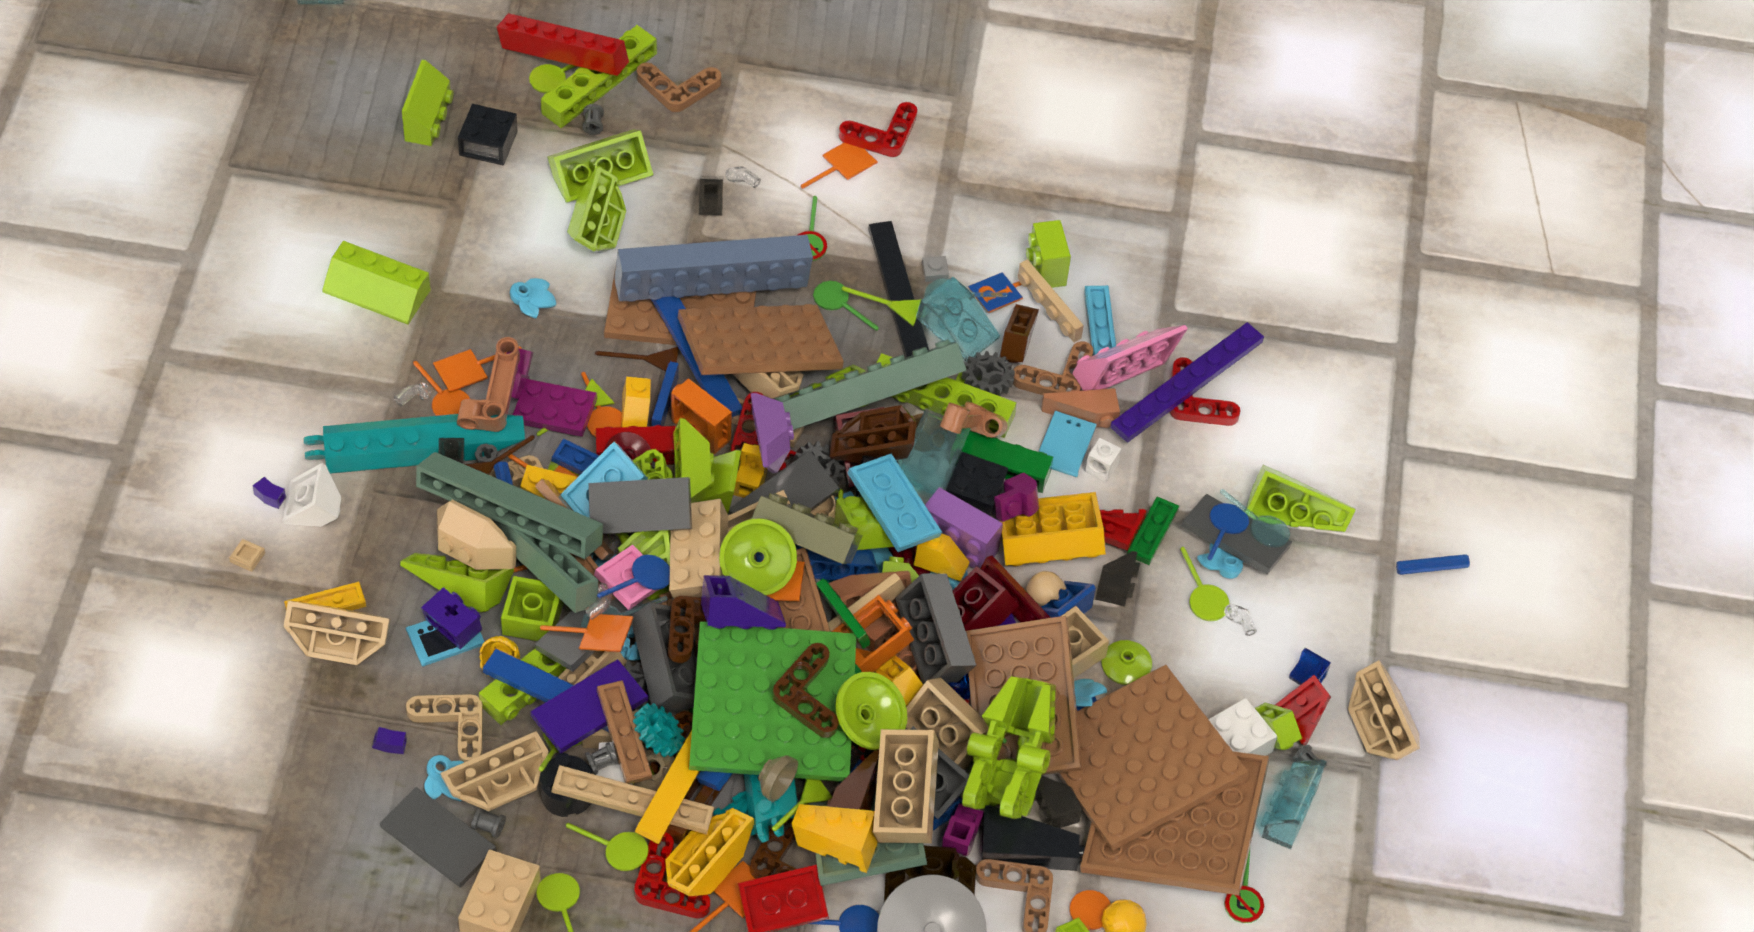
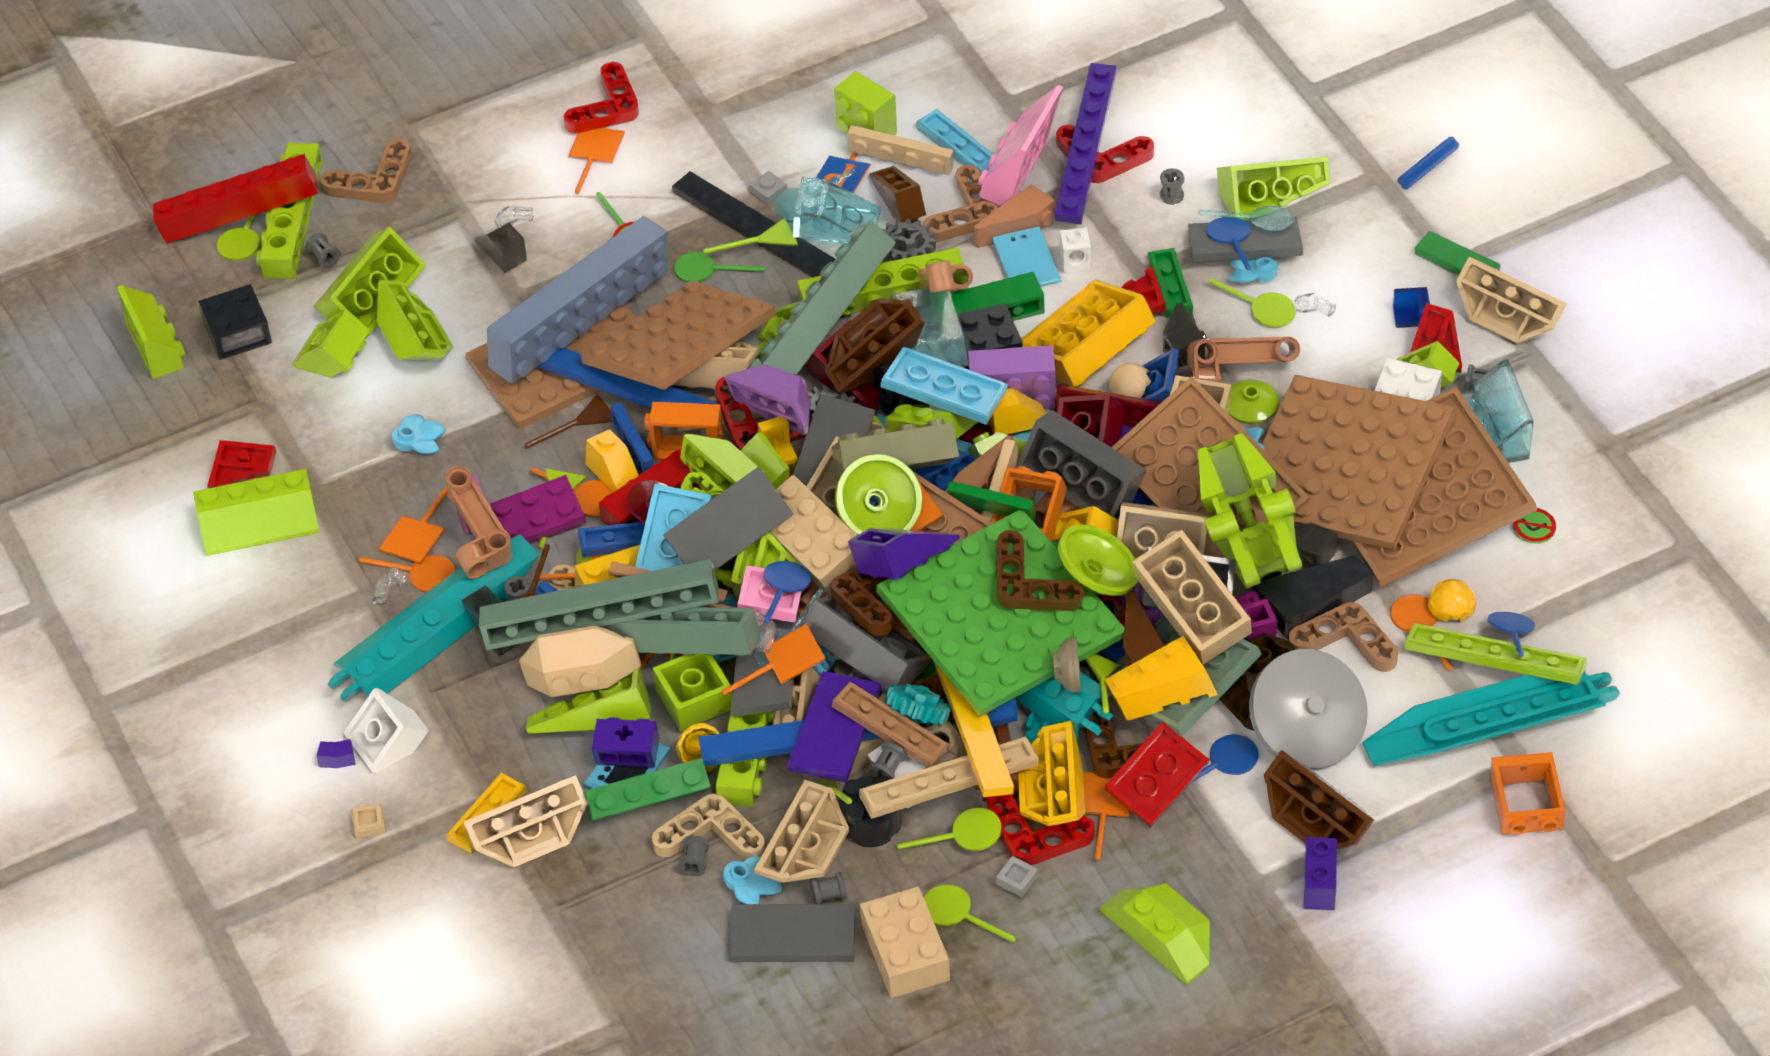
camera: 30 degrees left, 5 degrees down
(390, 741) = (667, 884): dark purple piece -> none
(399, 240) = (240, 462): none -> red wing
(424, 732) = (693, 858): none -> dark grey bush
(432, 662) = (646, 790): none -> green brick
(535, 194) = (332, 345): none -> lime slope
(621, 906) = (1016, 876): none -> light grey plate
(1018, 499) = (1036, 321): magenta brick -> none
(1140, 616) = (1235, 352): none -> nougat piece
(1221, 456) = (1172, 186): none -> dark grey bush
(1381, 648) = (1448, 253): none -> green tile

